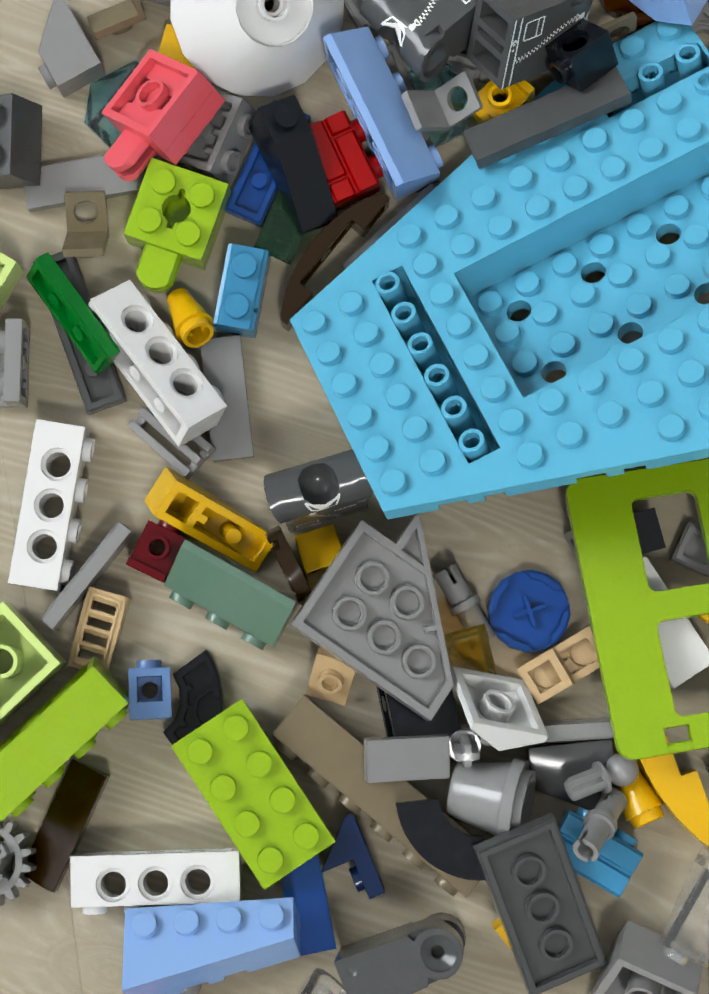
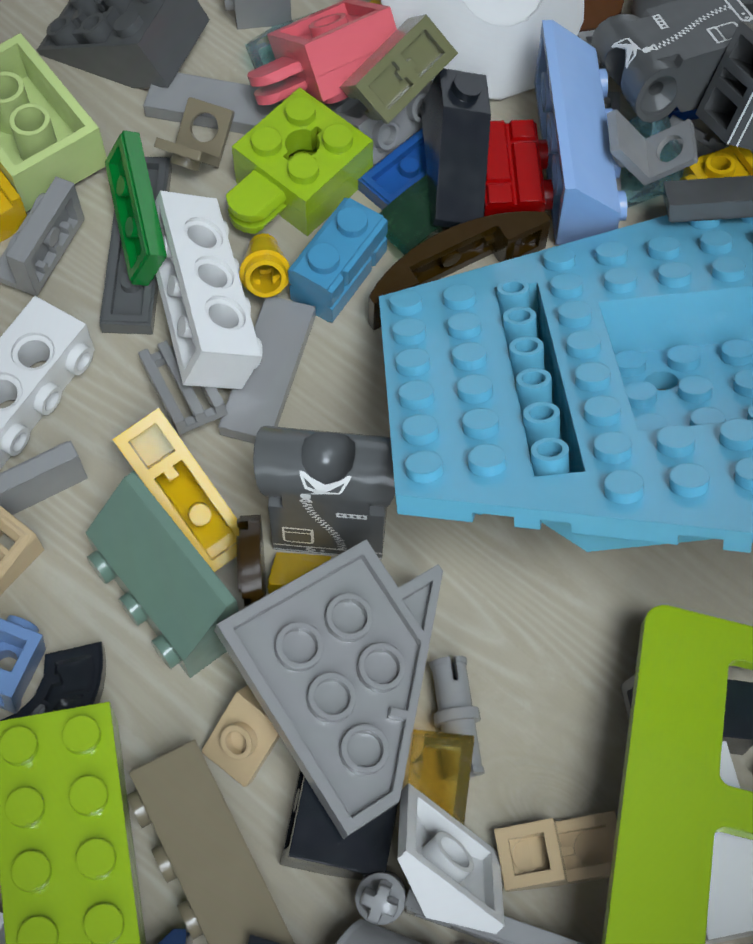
camera: 20 degrees right, 20 degrees down
(152, 565) = (82, 497): dark red brick -> none
(226, 121) = (400, 68): none -> olive hinge
(406, 758) = (293, 878): light grey tile -> none
(529, 611) = (539, 763): blue tile -> none

